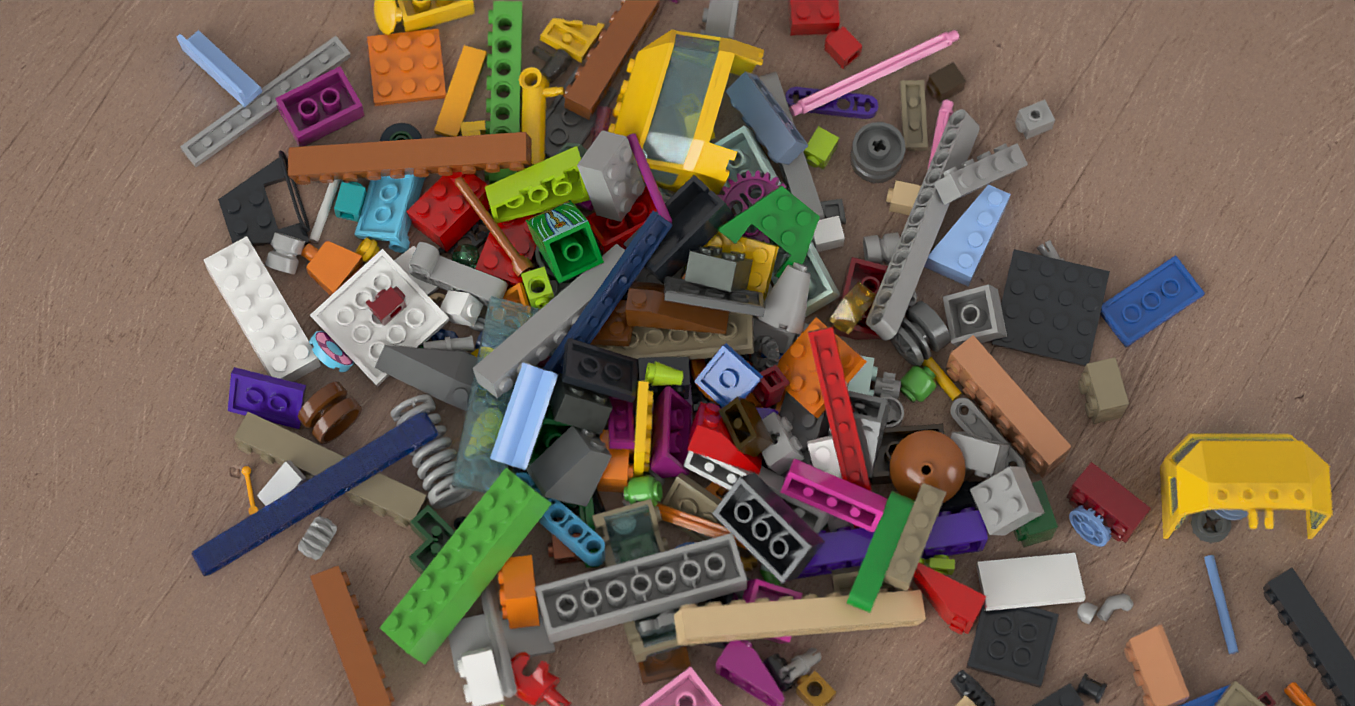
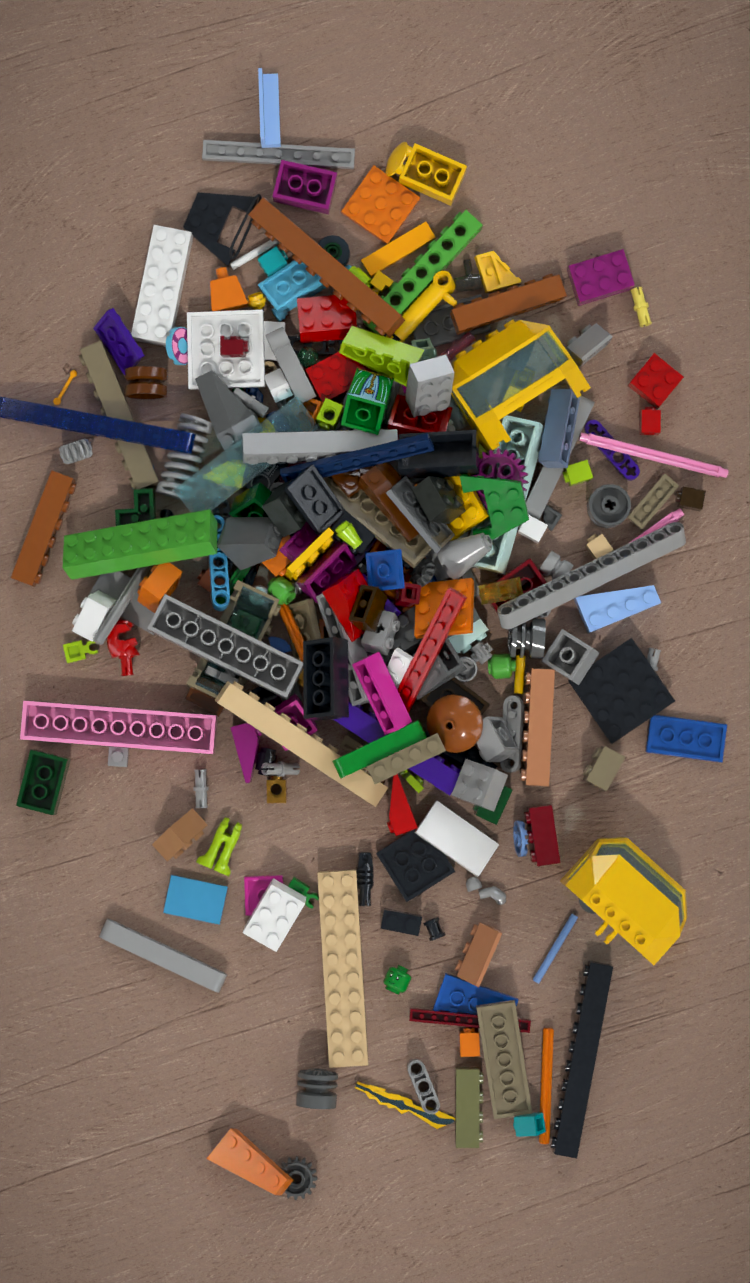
camera: 50 degrees right, 15 degrees up
(282, 482) = (83, 401): tile -> none
(284, 253) = (203, 263): light grey wheel -> none
(519, 263) = (332, 391): dark orange piece -> none
(524, 416) = (247, 487): light blue panel -> none
(648, 177) = (447, 408): magenta bar -> none
(980, 173) = (654, 575): light grey brick -> none
(1034, 119) = (722, 568): light grey brick -> none

